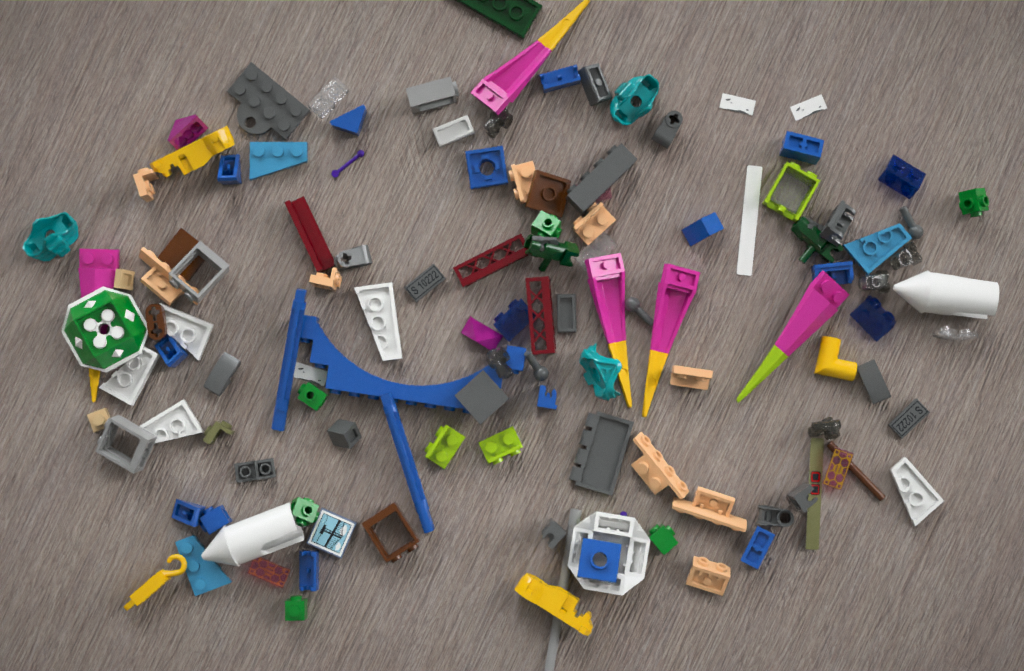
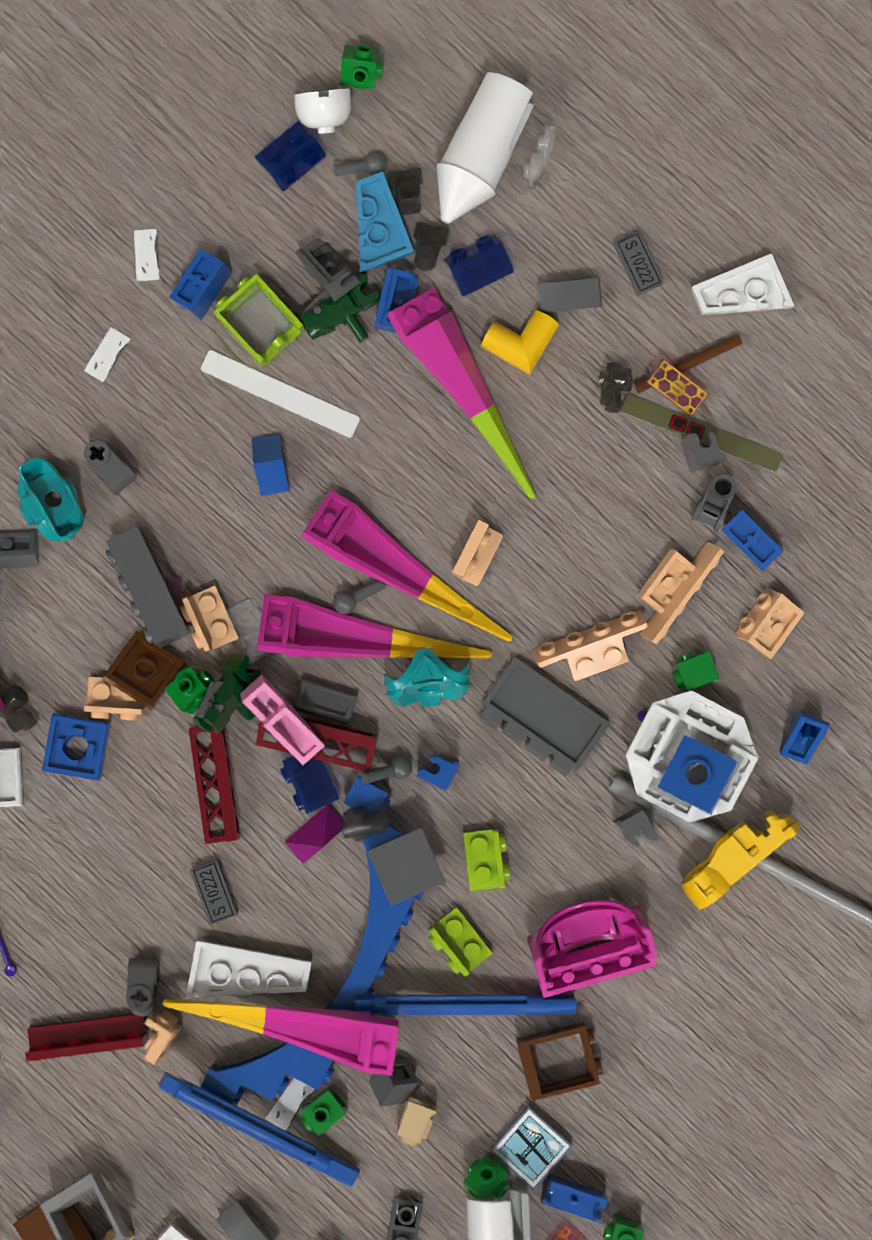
camera: 70 degrees left, 0 degrees up
(324, 455) = (416, 1121): none -> tan window
(364, 391) = (341, 1035): none -> dark pink plate
(482, 522) = (586, 923): none -> dark pink piece
(546, 289) = (281, 719): none -> bright pink slope
(644, 620) = (803, 737): none -> blue slope
(938, 187) = (323, 109): none -> white cylinder

